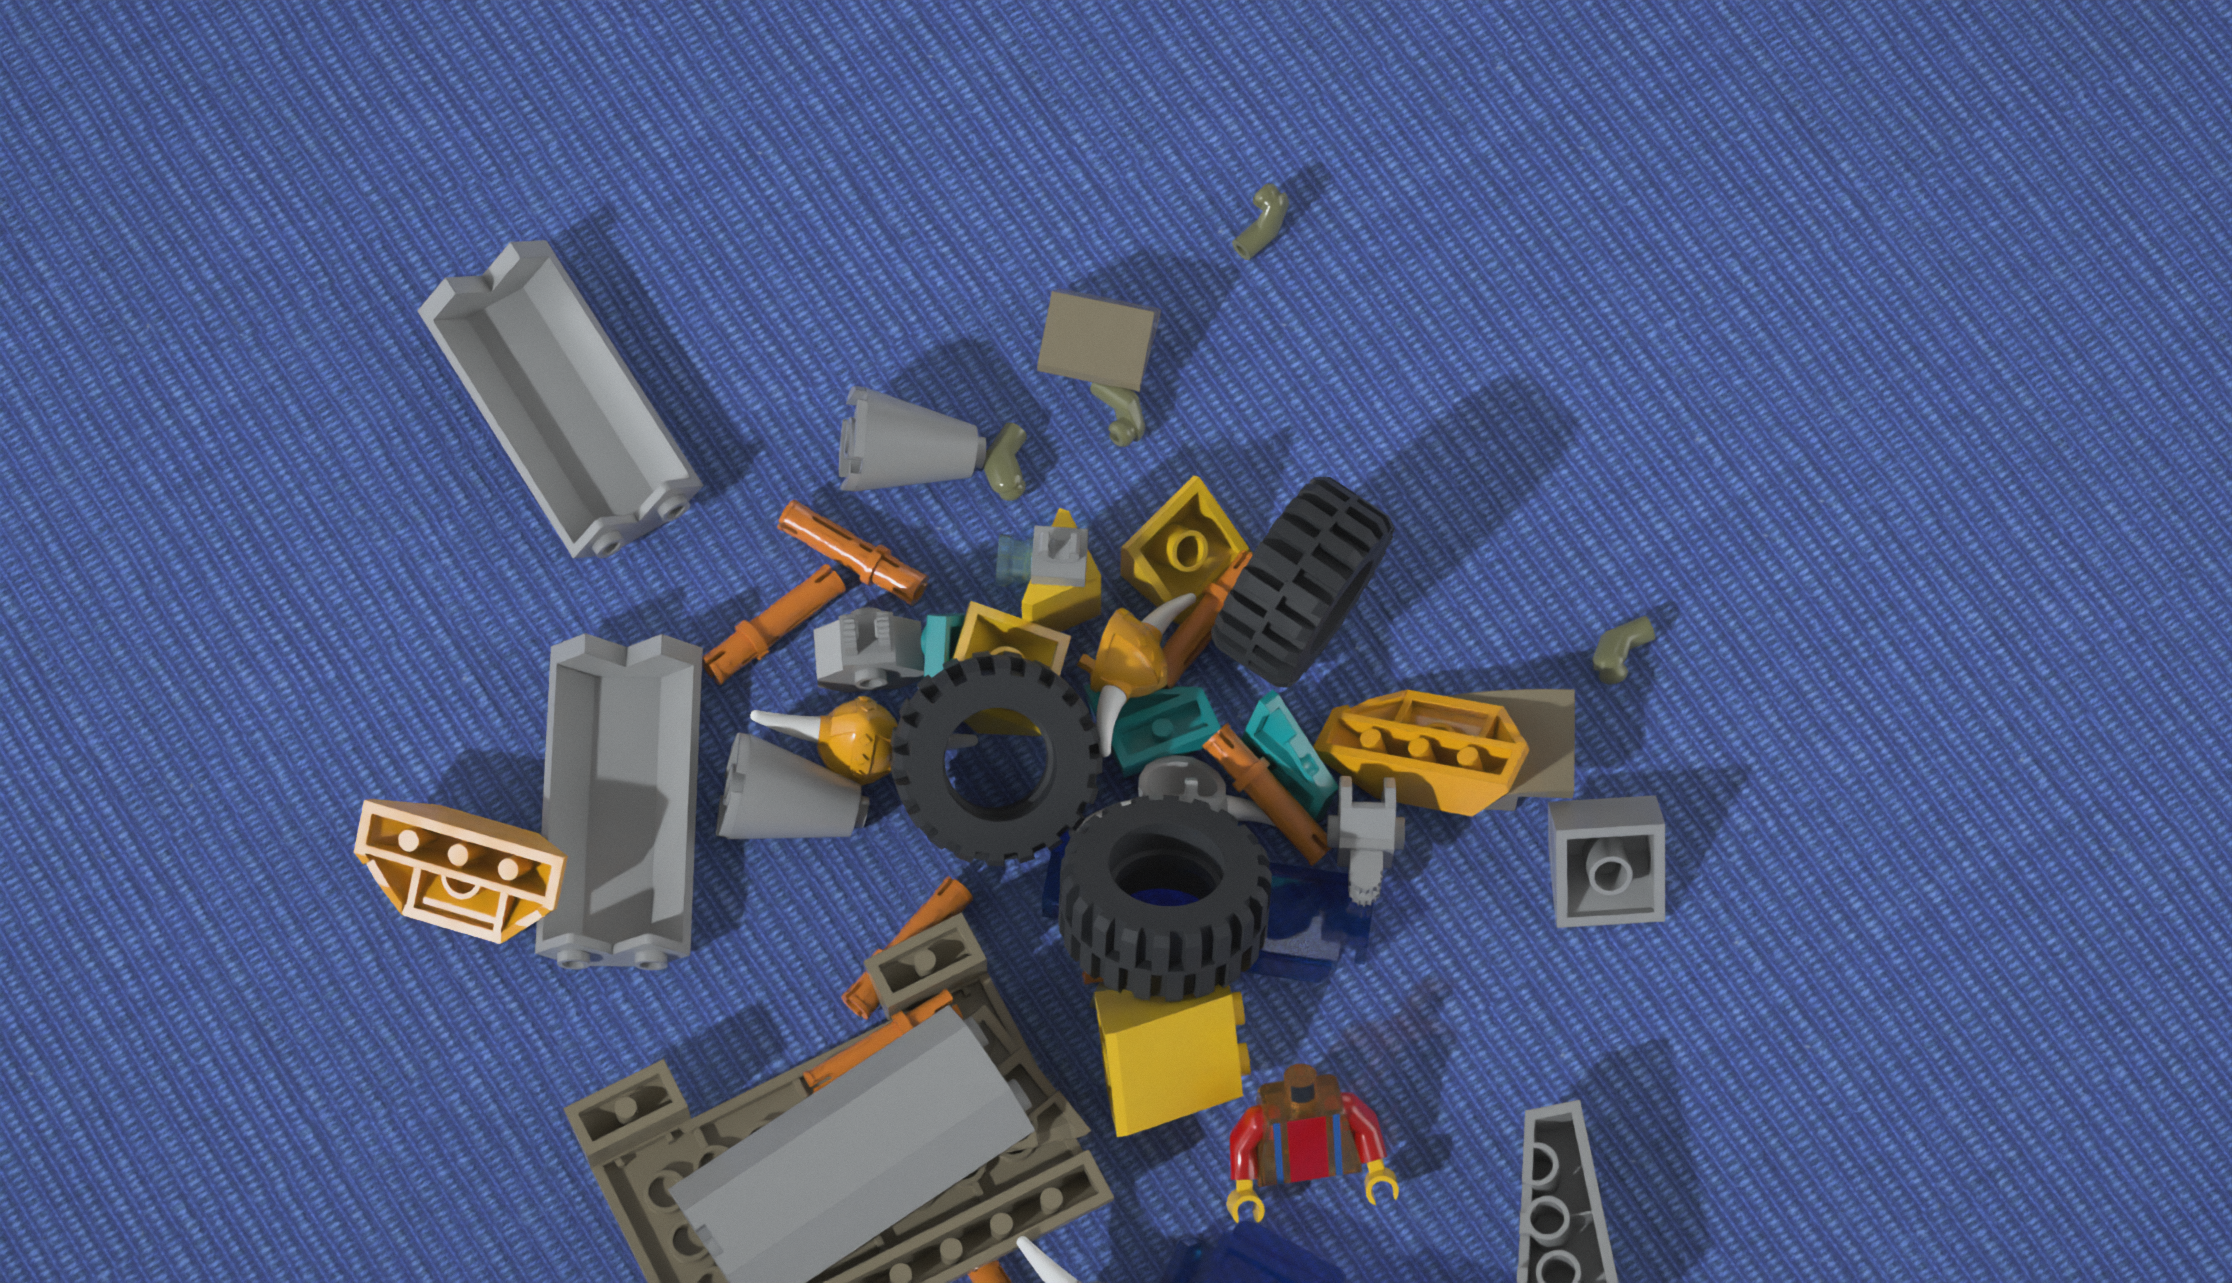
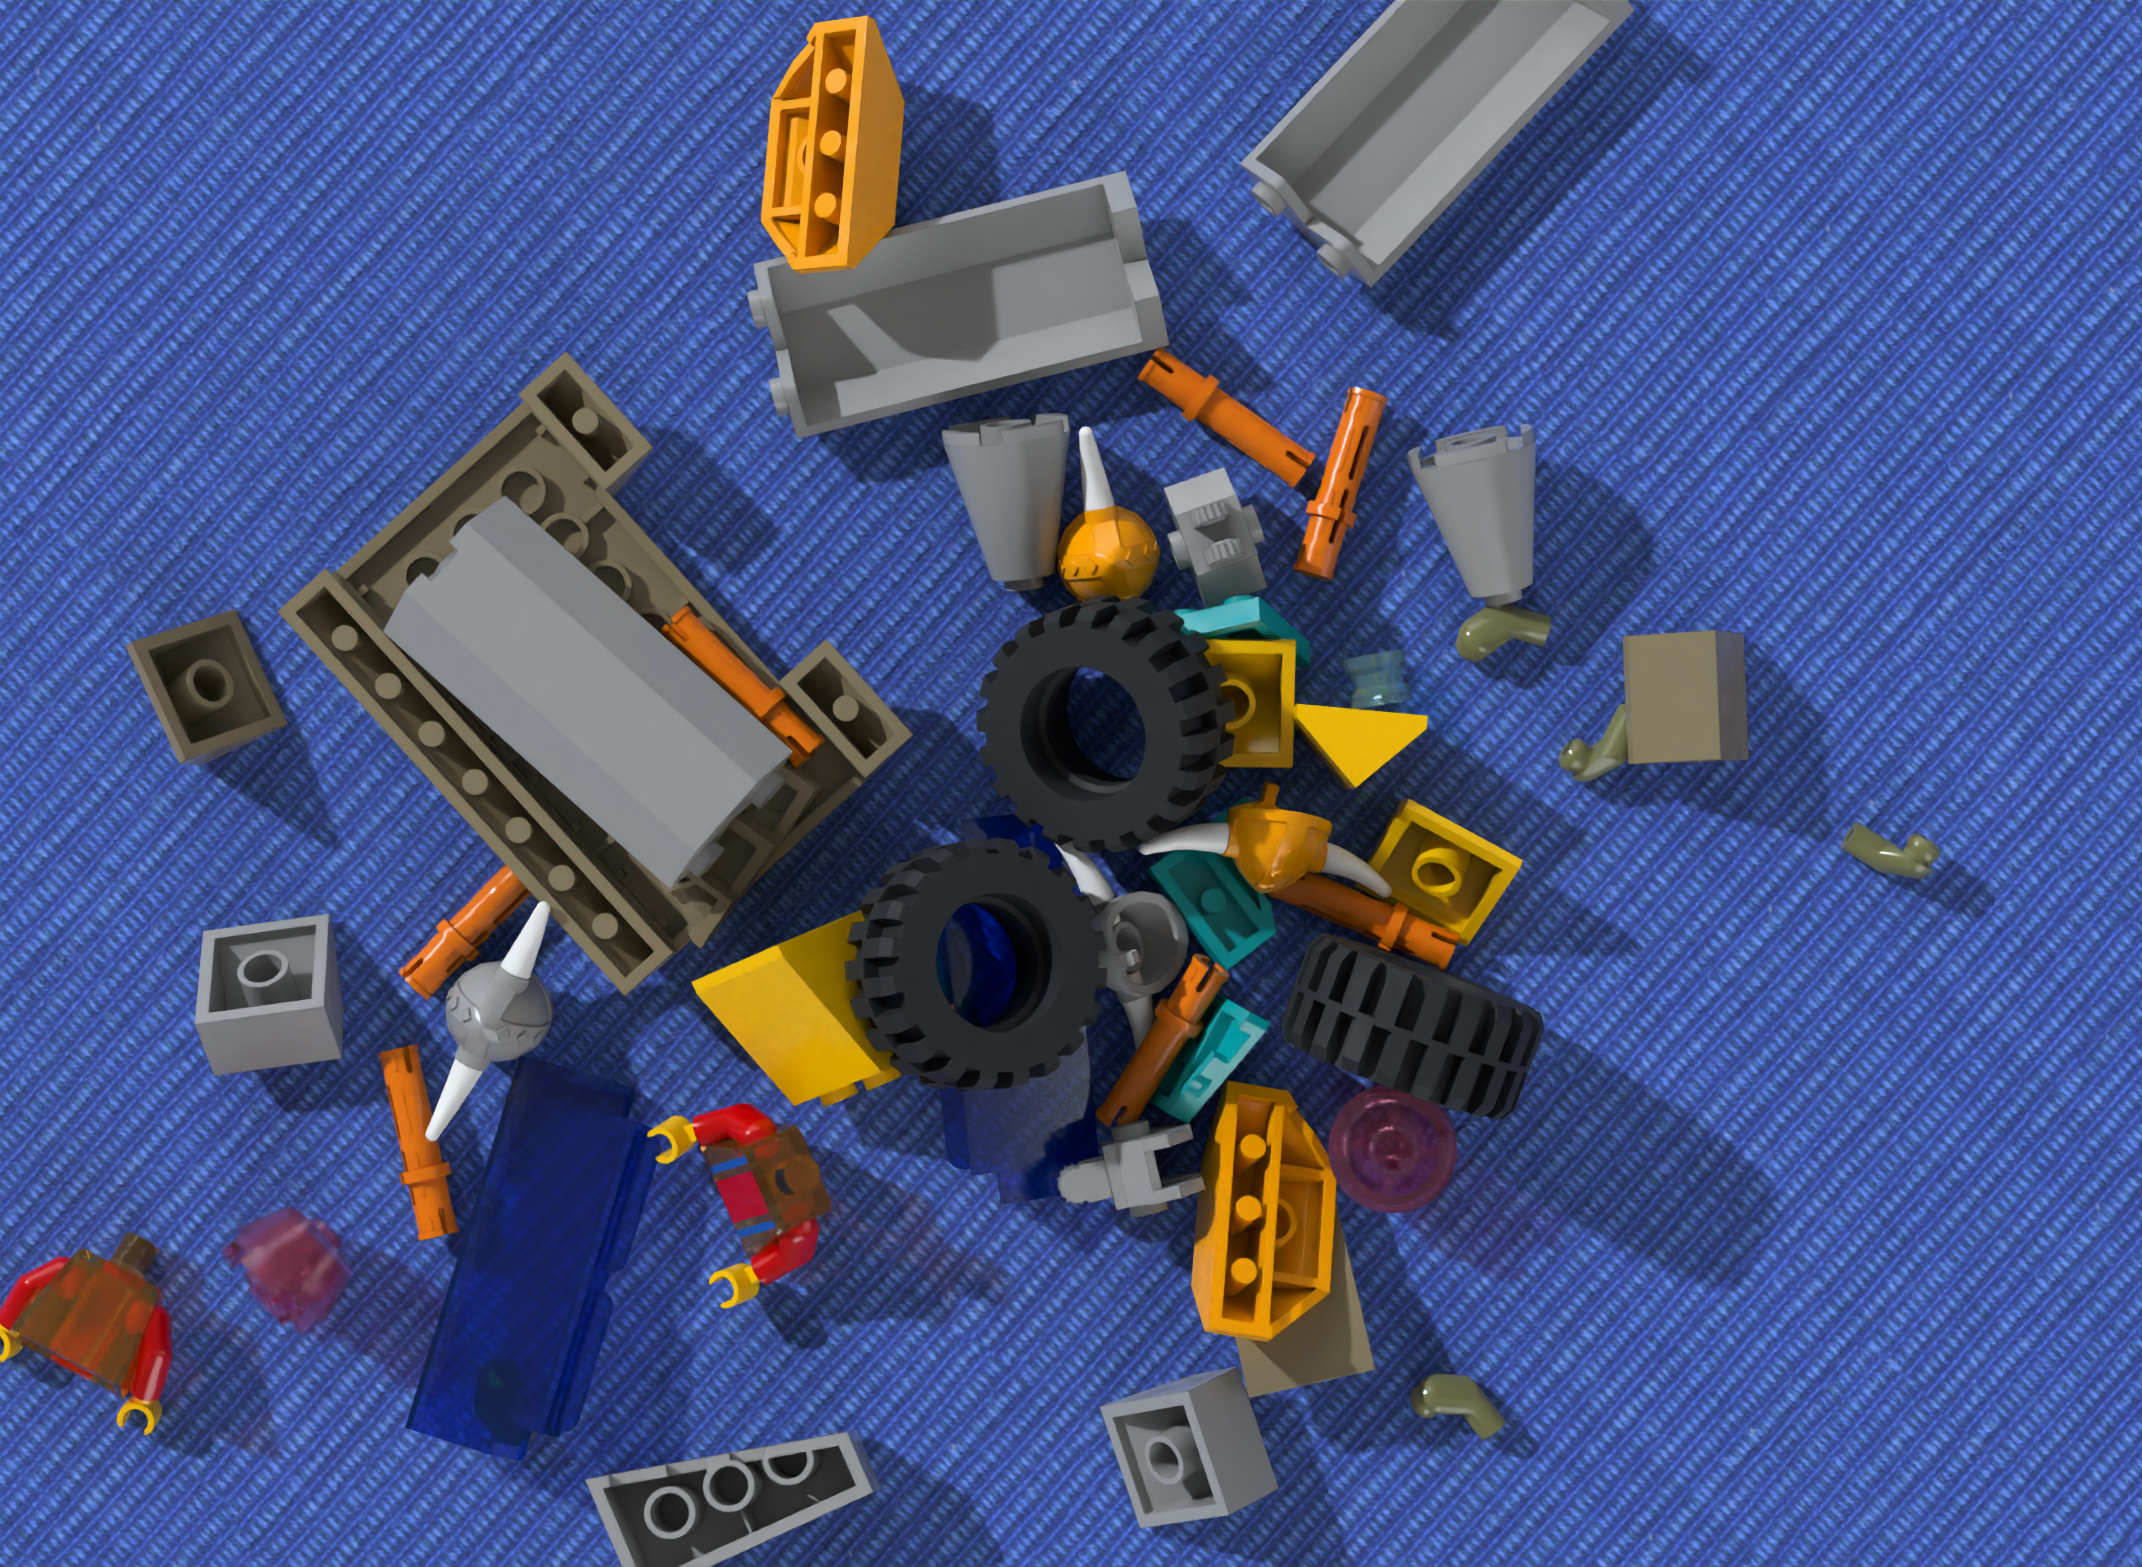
camera: 75 degrees right, 20 degrees up
(945, 903) = (893, 685): orange pin -> none
(1059, 556) = (1362, 733): light grey tile -> none
(1400, 635) = (1392, 1150): none -> clear pink cone

